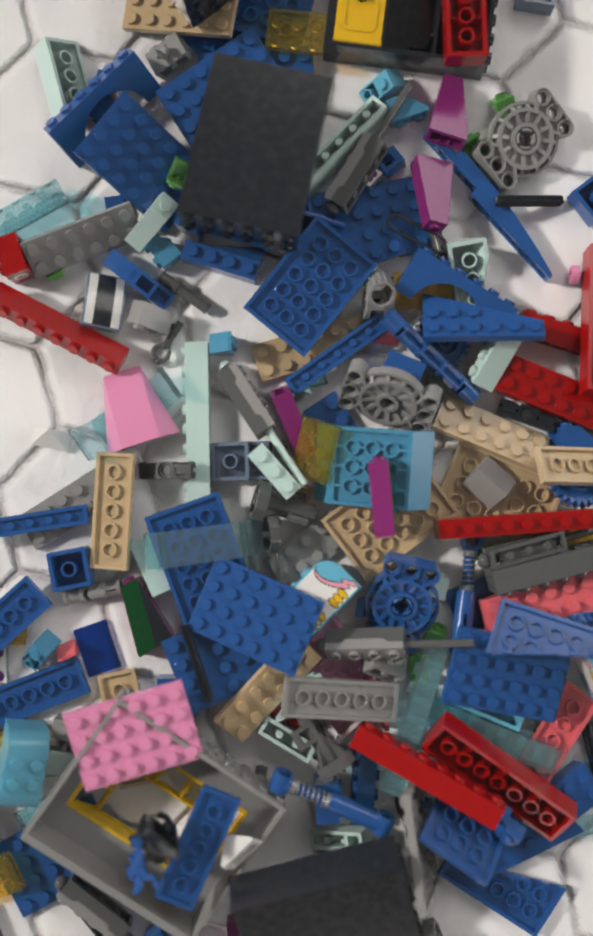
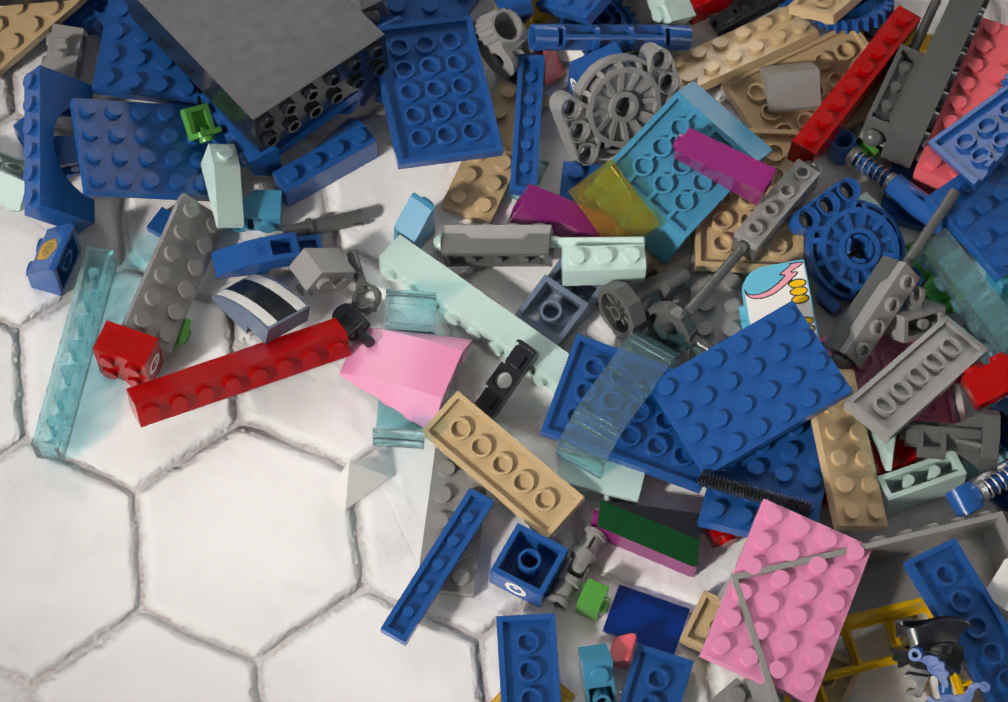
camera: 50 degrees left, 25 degrees down
(40, 167) = (54, 259): none -> blue slope
(82, 615) = (593, 600): none -> bright green plate
(135, 360) = (354, 323): none -> black piece
(367, 543) = (764, 222): none -> light grey piece

